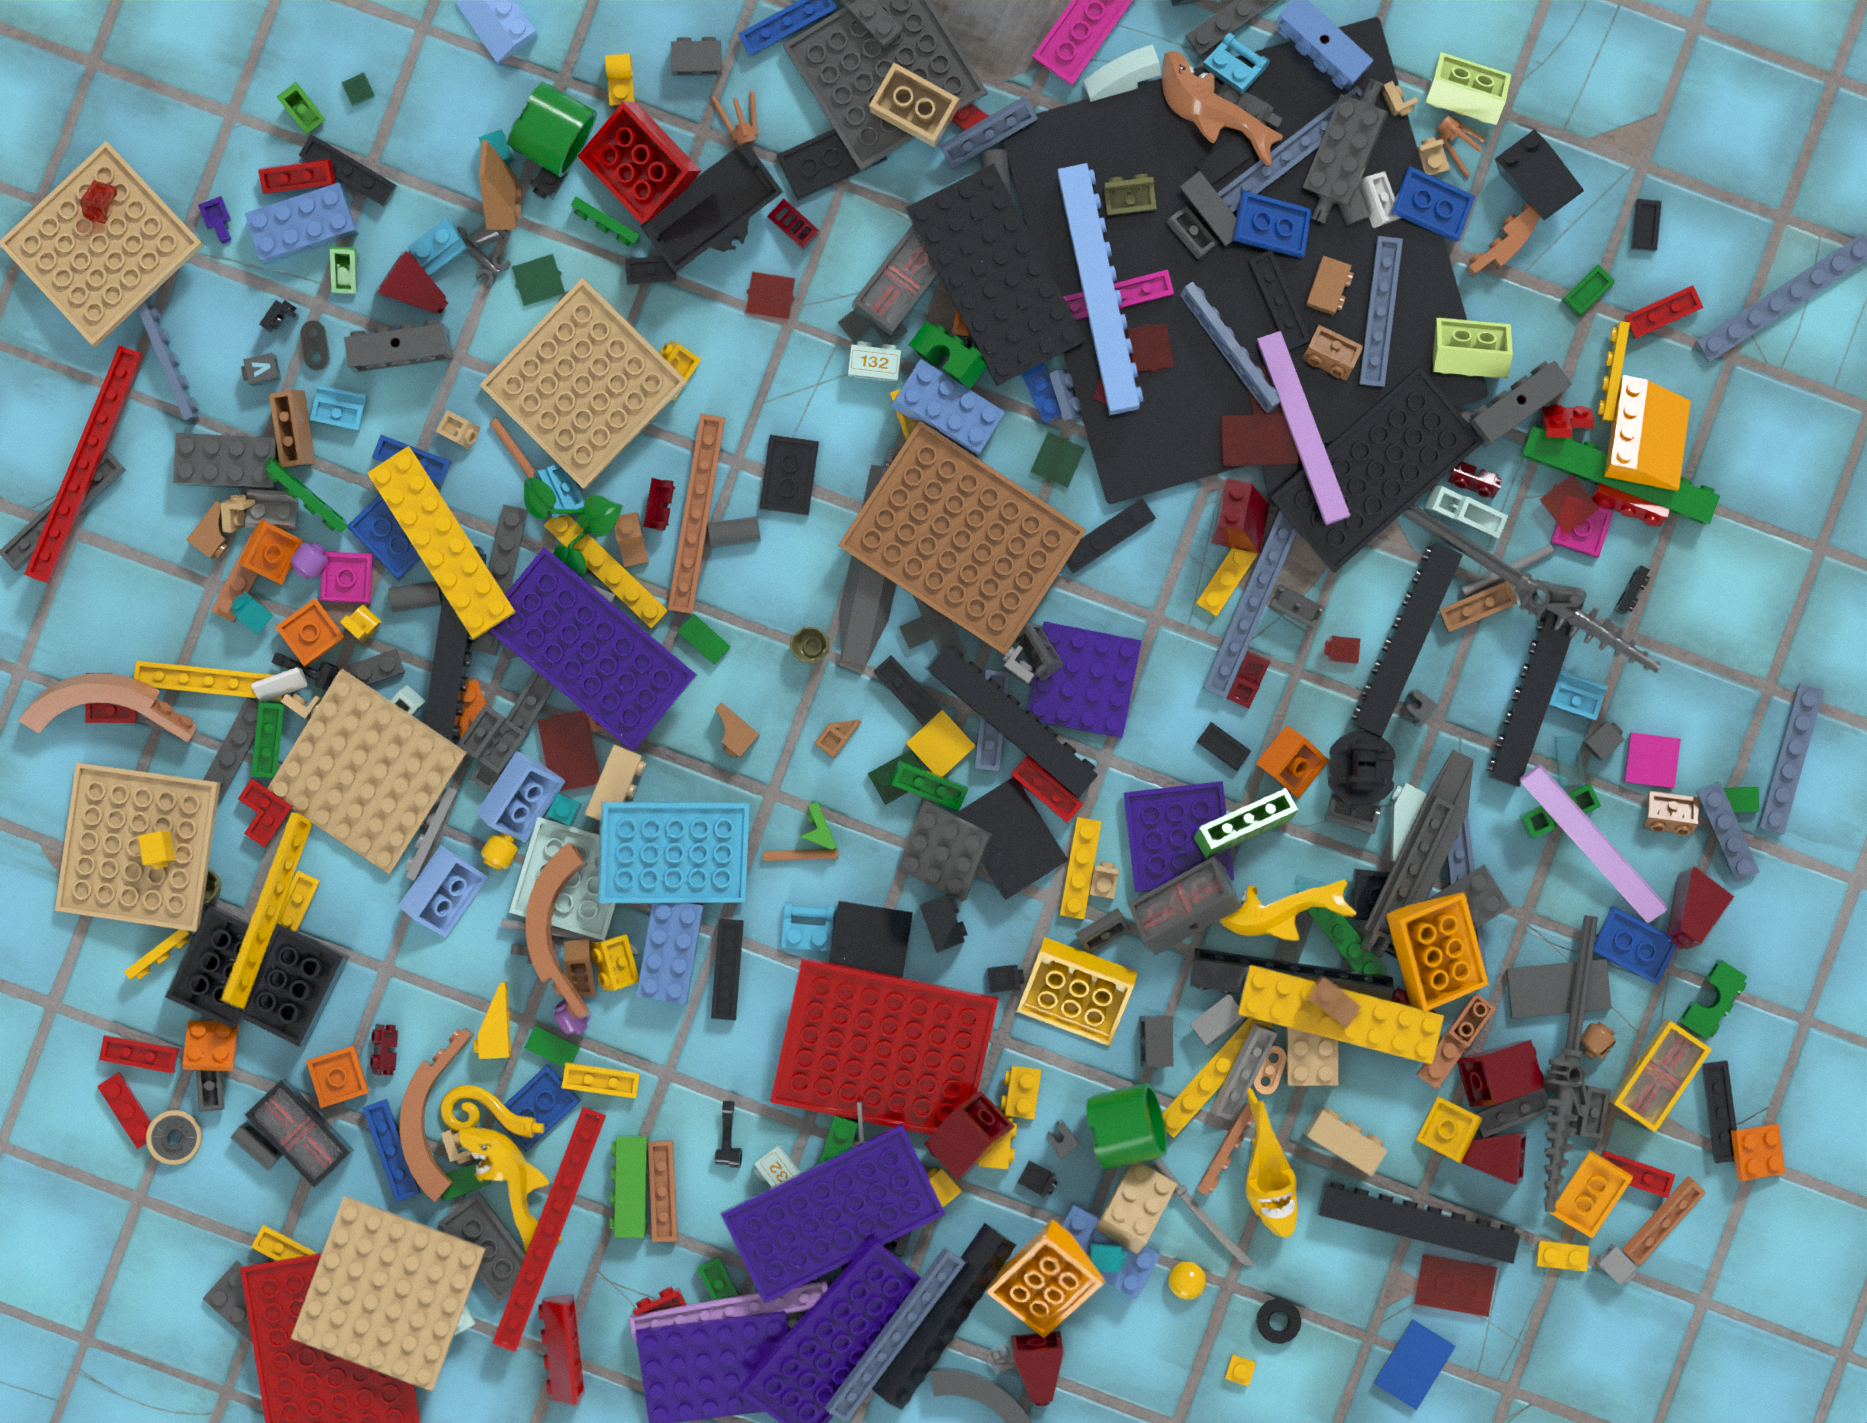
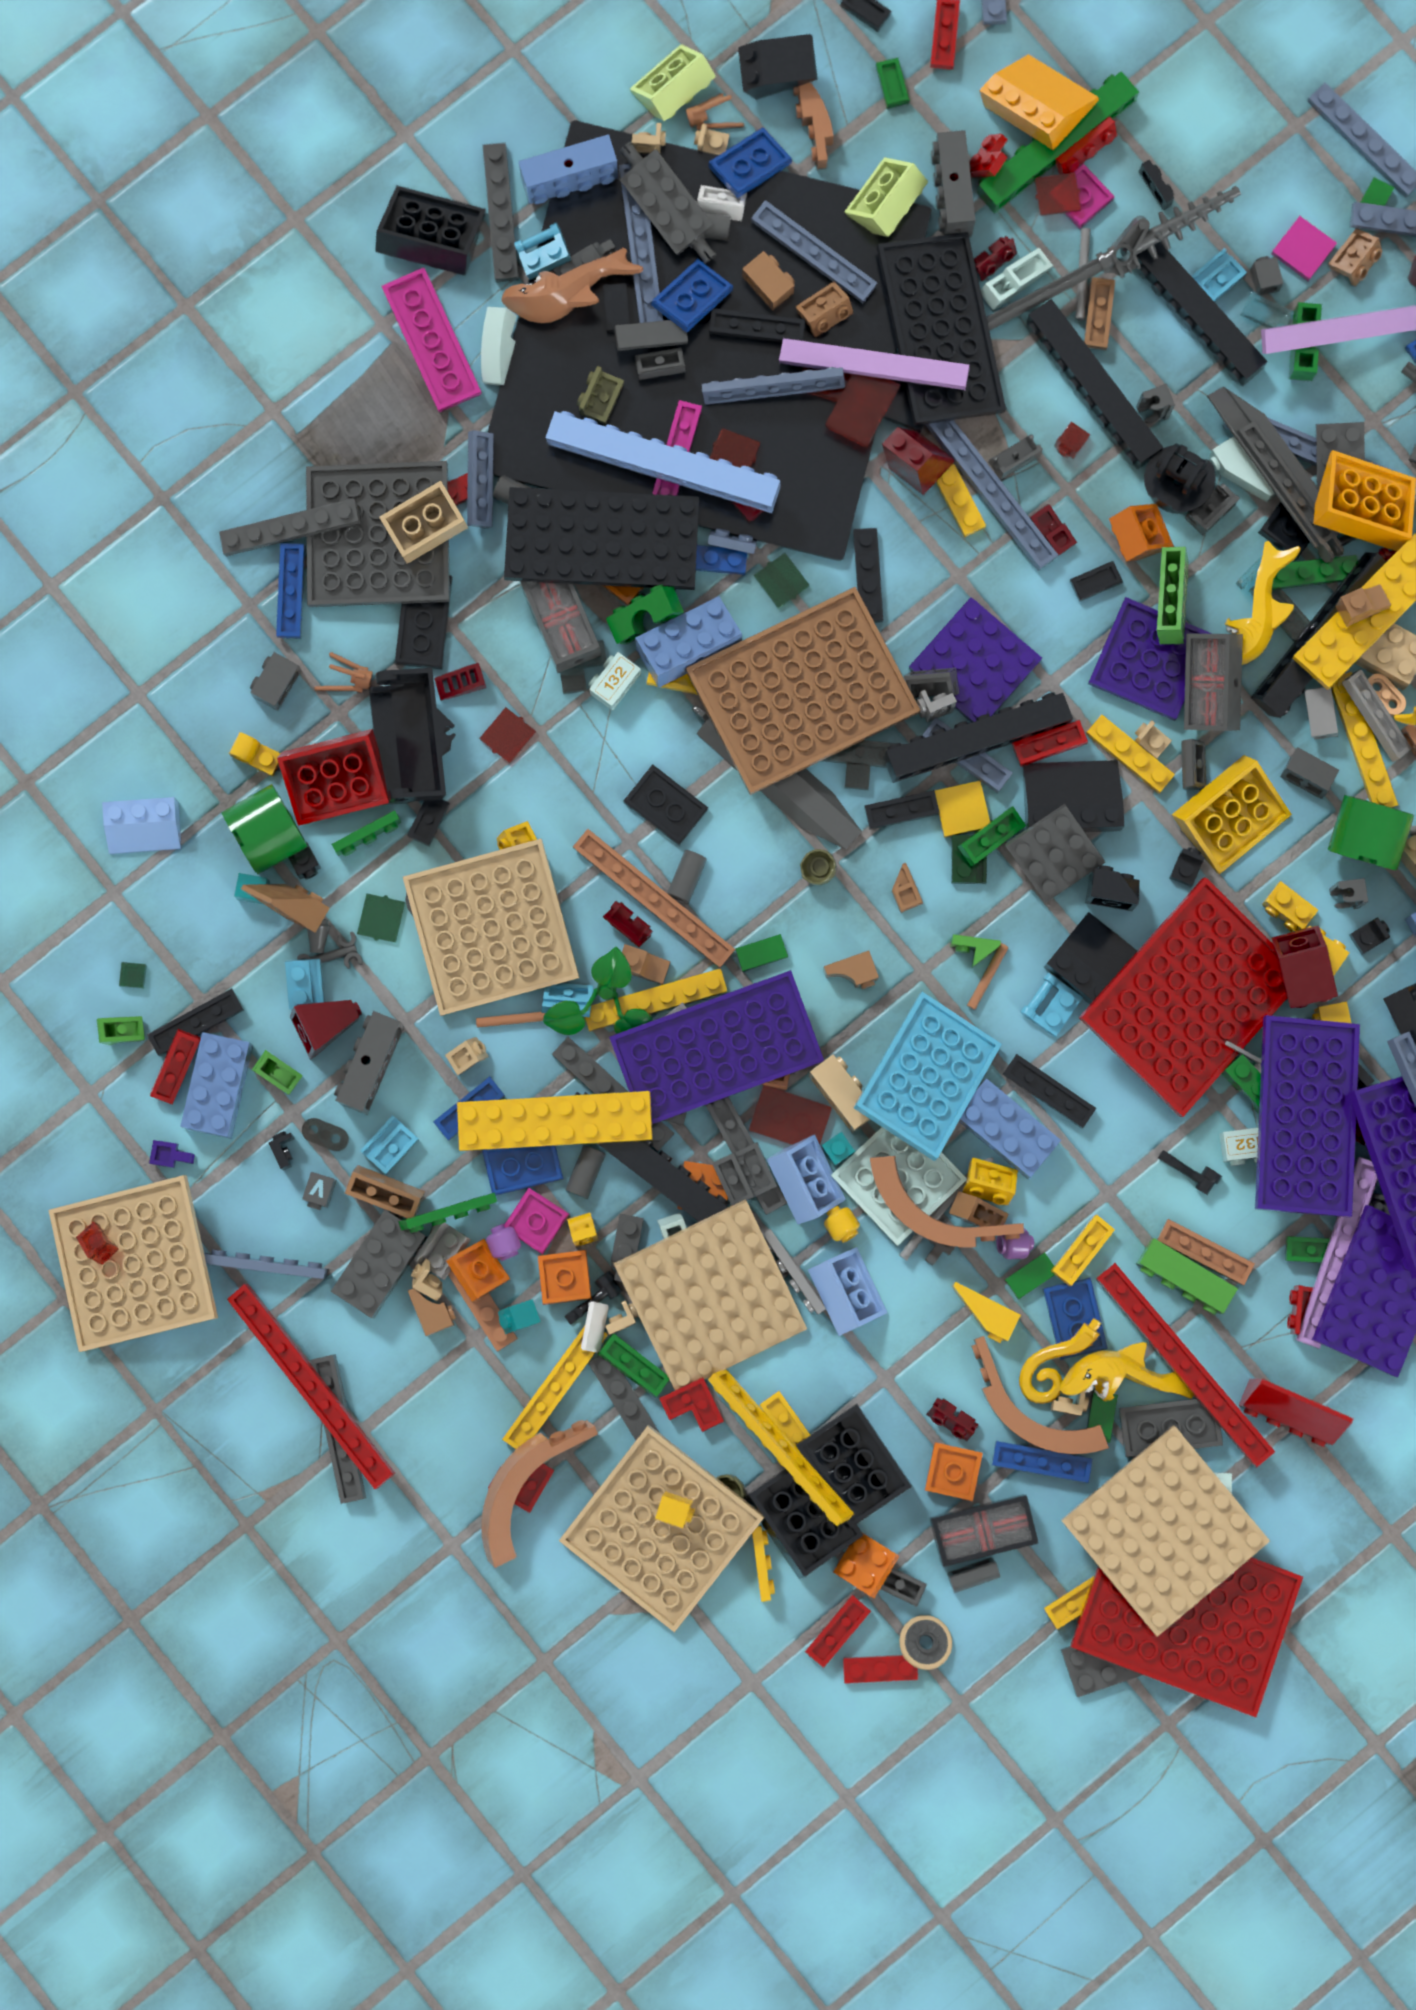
camera: 60 degrees left, 5 degrees down
(1611, 382) = (965, 94): yellow plate -> none

